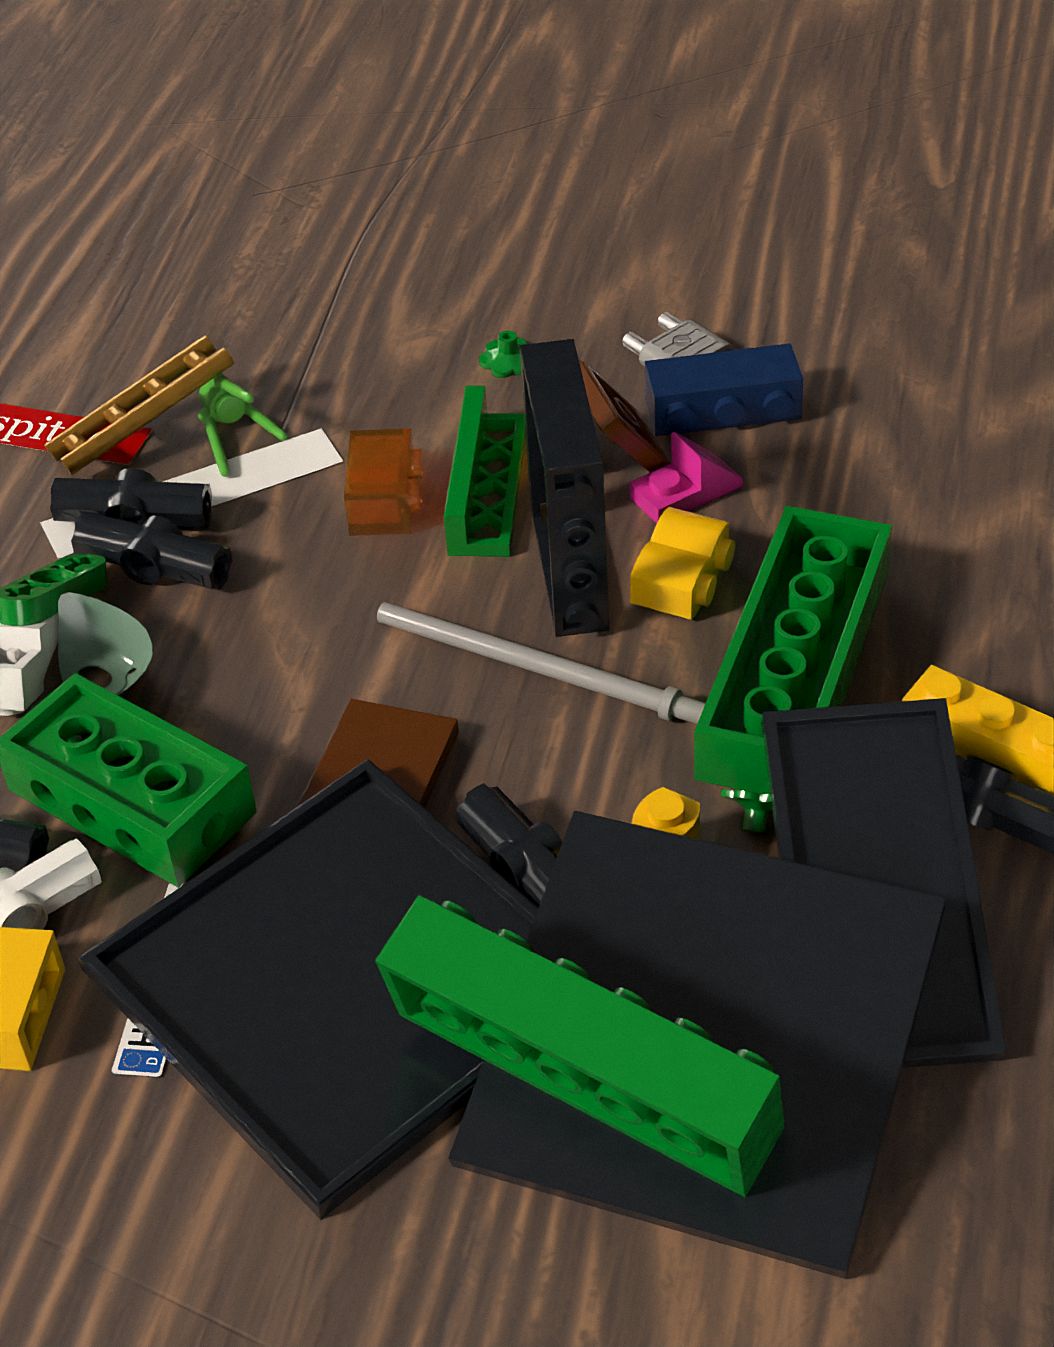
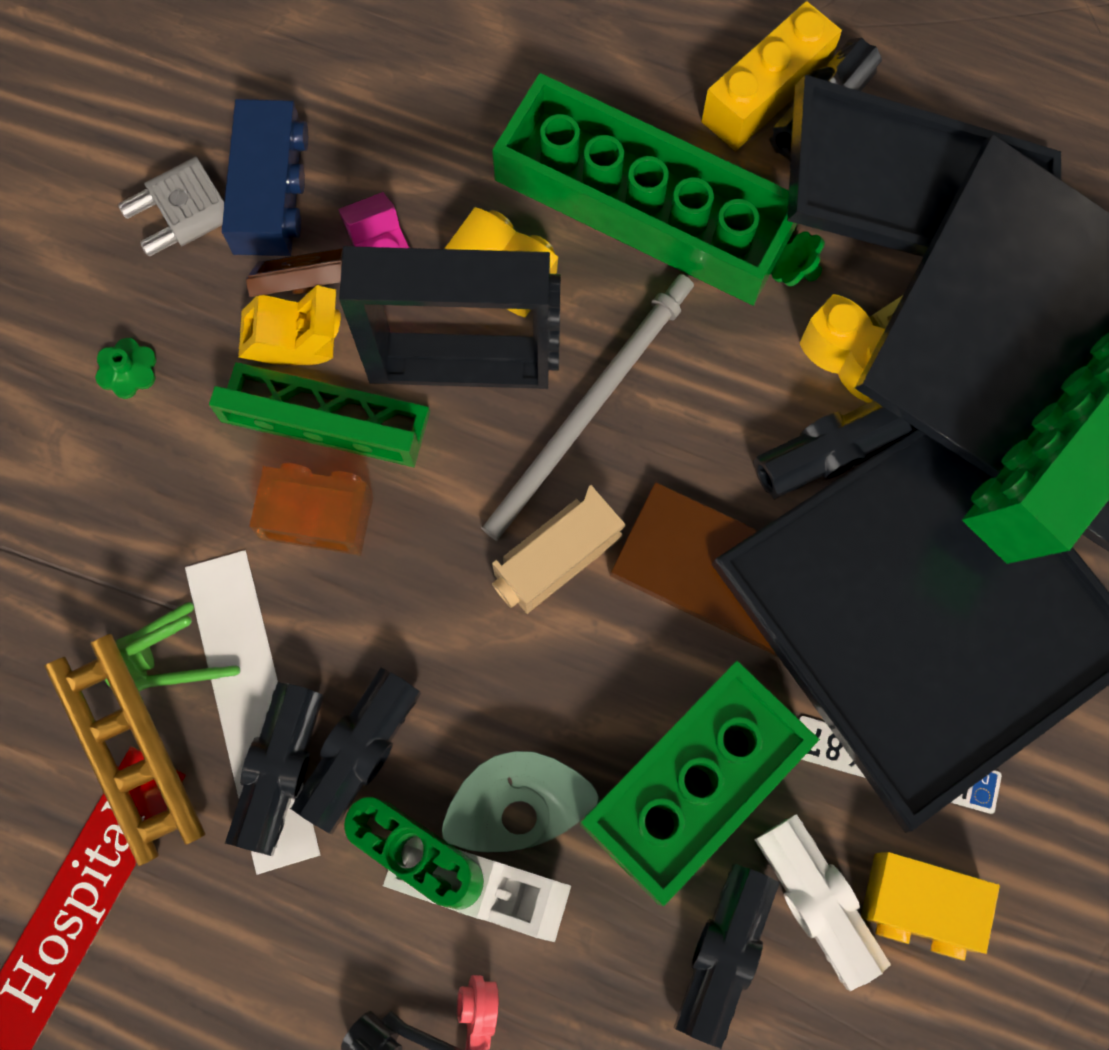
camera: 85 degrees left, 30 degrees up
(366, 653) = (557, 551): none -> tan window

